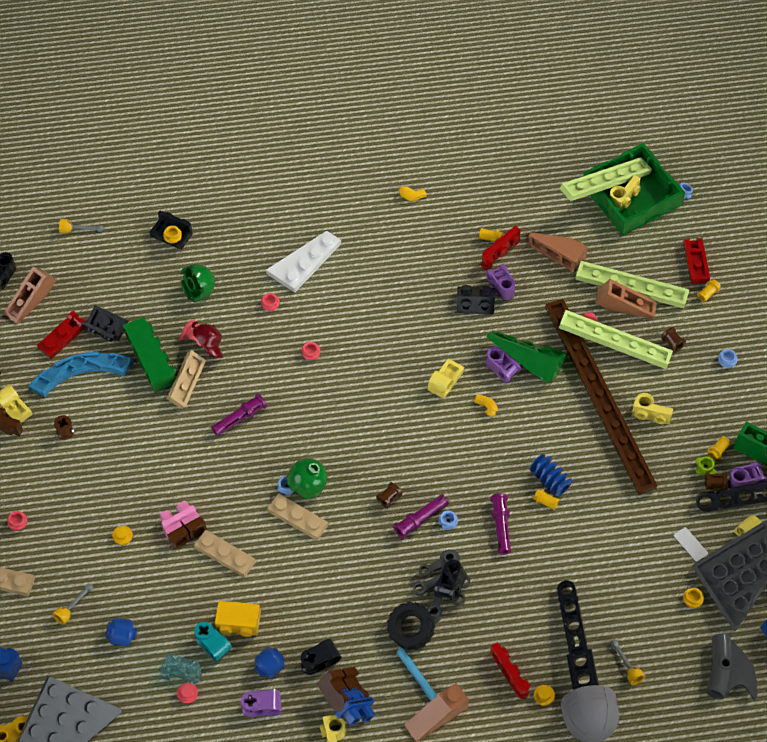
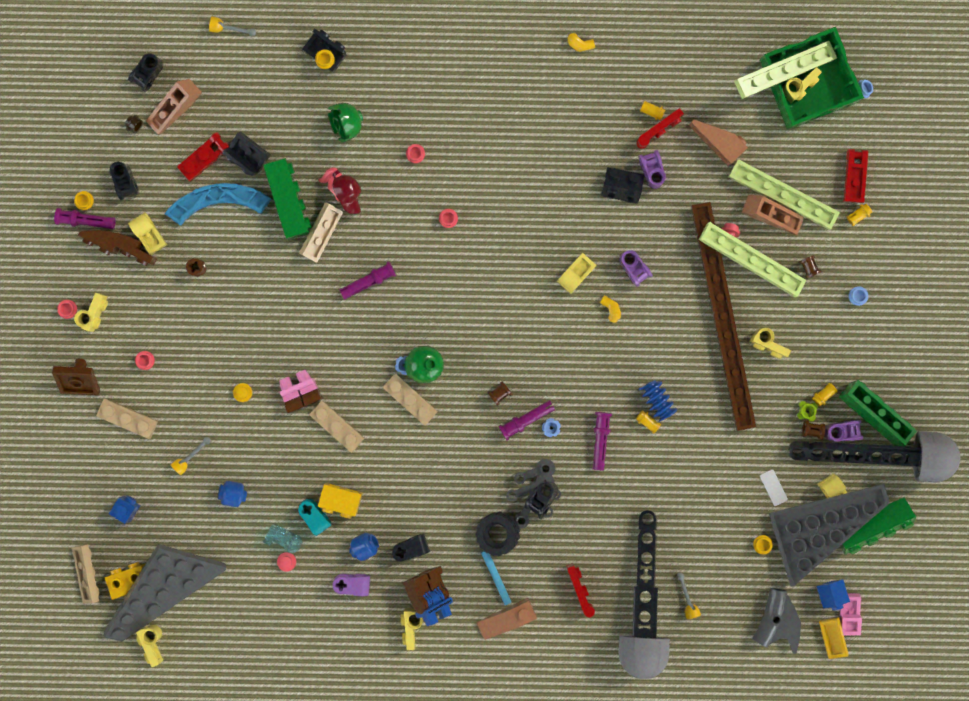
camera: 10 degrees right, 30 degrees up
(302, 263) = (456, 109): white wing -> none
(540, 361) = (669, 266): green wedge -> none
(544, 695) = (606, 616): yellow plate -> none

